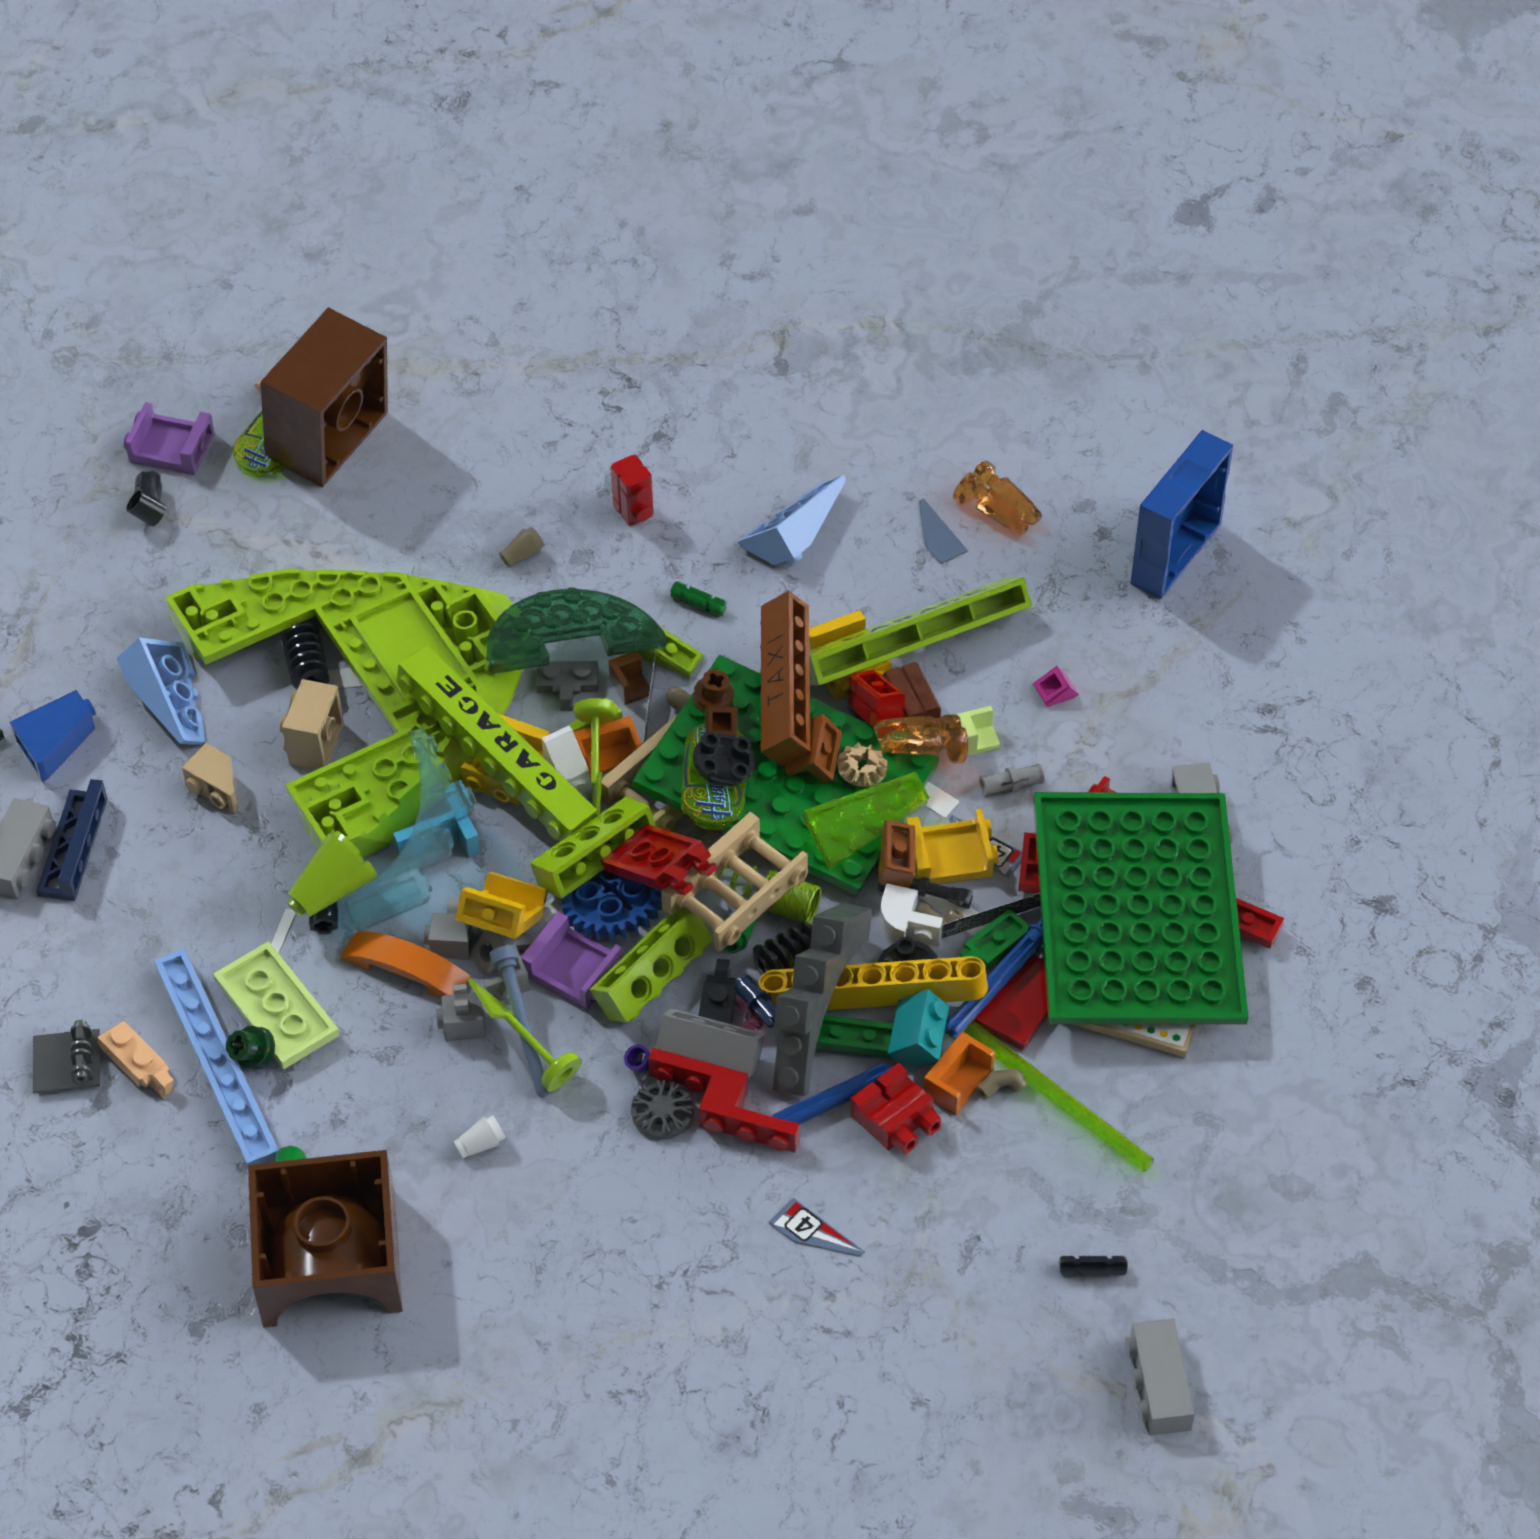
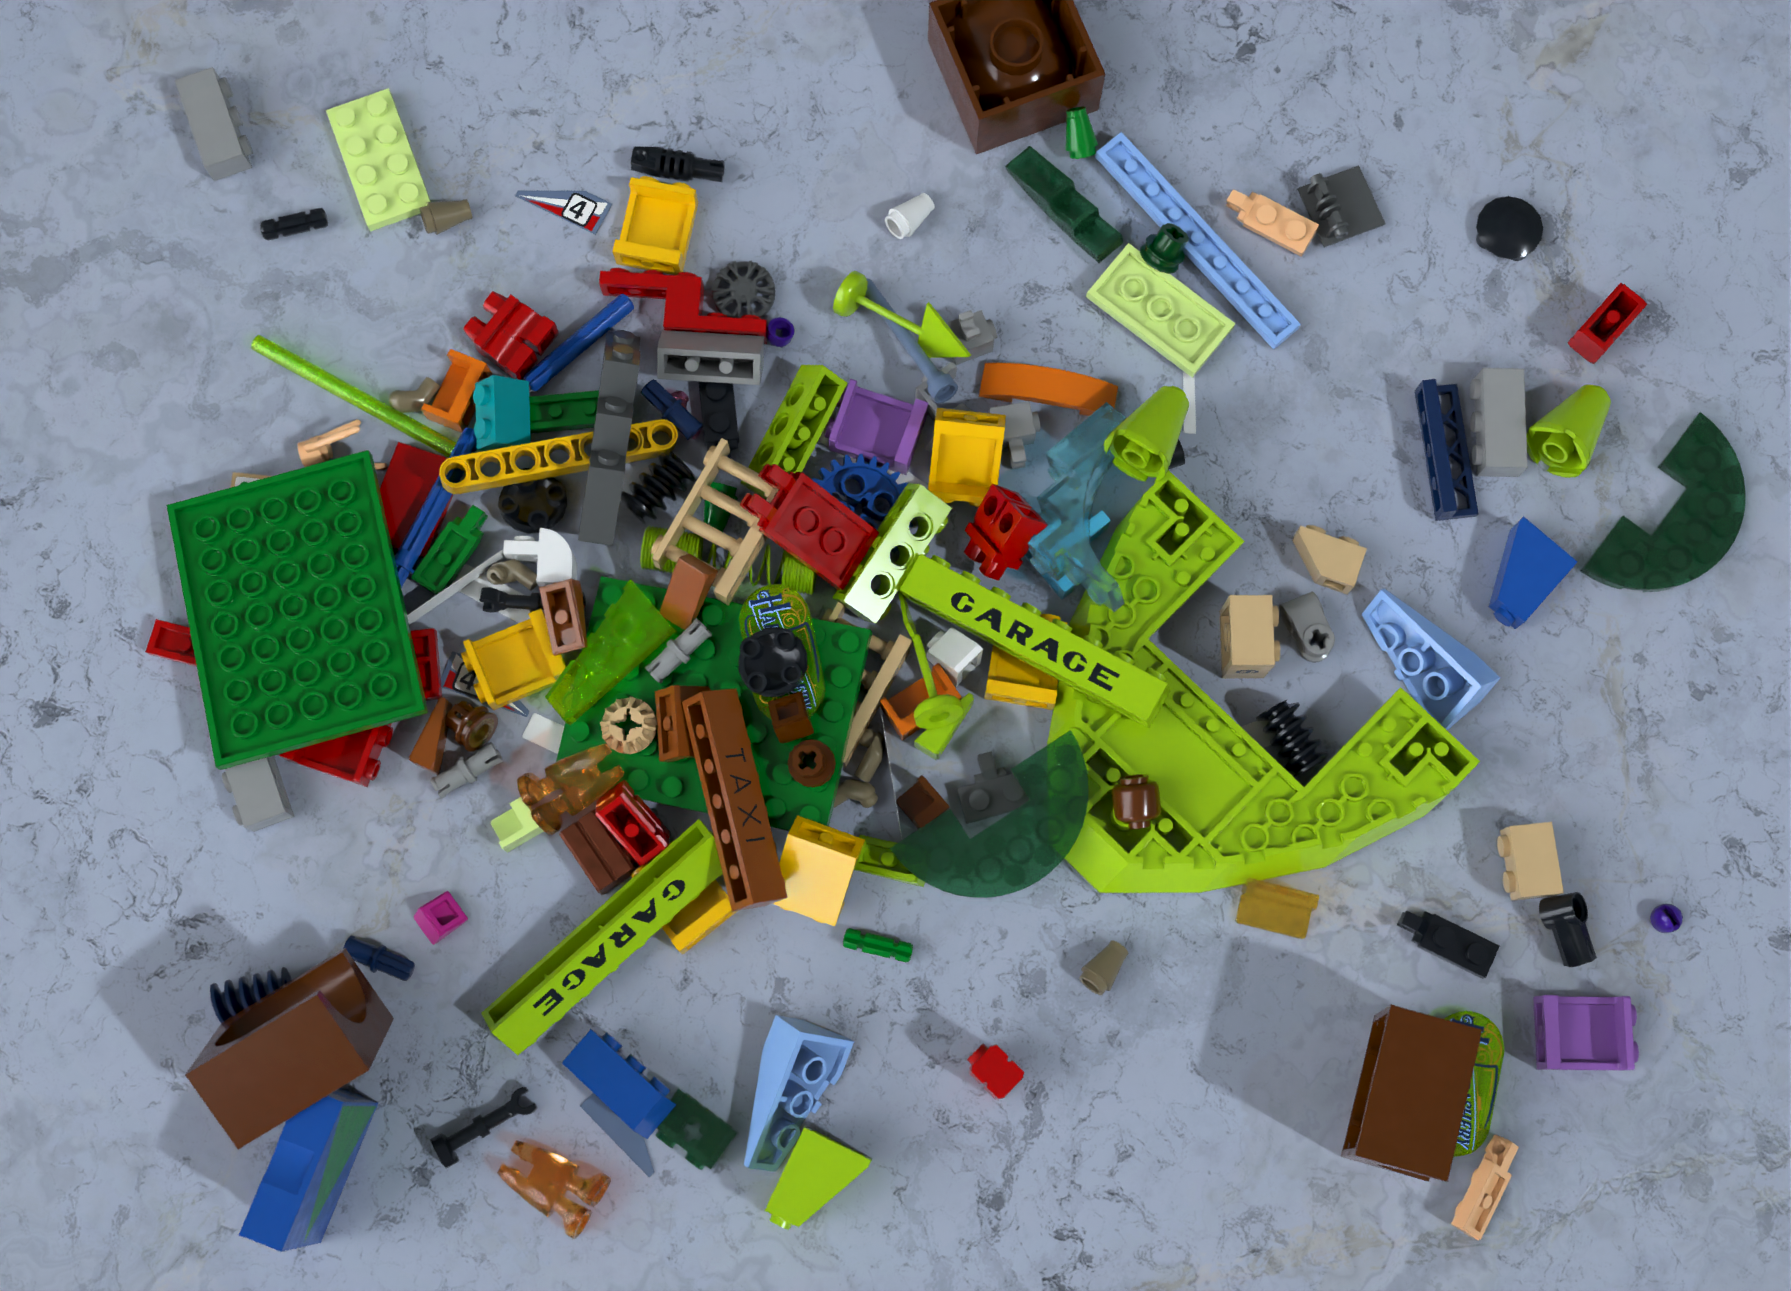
camera: 165 degrees right, 25 degrees up
(69, 503) = (1662, 922): none -> dark purple hinge
(155, 541) = (1530, 861): none -> tan brick
(242, 515) = (1450, 942): none -> black hinge
(255, 732) = (1305, 621): none -> light grey piece
(323, 1107) = (1063, 204): none -> clear green slope
(365, 557) = (1275, 908): none -> clear yellow panel
(455, 613) = (1136, 800): none -> reddish brown head
(497, 839) = (1001, 531): none -> red hips
(661, 718) = (873, 756): none -> dark tan arm
(695, 1234) = (675, 164): none -> black hinge
(726, 634) = (817, 869): none -> yellow panel
(732, 1179) = (656, 226): none -> yellow panel
(780, 833) = (687, 590): none -> dark orange slope
(791, 456) = (813, 1177): none -> lime slope
(803, 799) = (678, 651): none -> light grey pin
(878, 510) = (716, 1132): none -> clear green brick
(930, 538) = (620, 1082): none -> blue brick
(939, 1236) = (444, 215): none -> dark tan cone
(995, 1313) = (379, 159): none -> yellowish green plate
(1001, 806) = (473, 727): none -> reddish brown piece
(1020, 555) = (481, 1126): none -> black piece
(1026, 820) = (431, 743): none -> dark orange slope
(1102, 1051) = (319, 449): none -> light nougat plant
(1112, 667) = (379, 959): none -> dark blue axle
(1180, 571) = (291, 1049): none -> reddish brown piece
(1221, 655) = (235, 1000): none -> dark blue piece

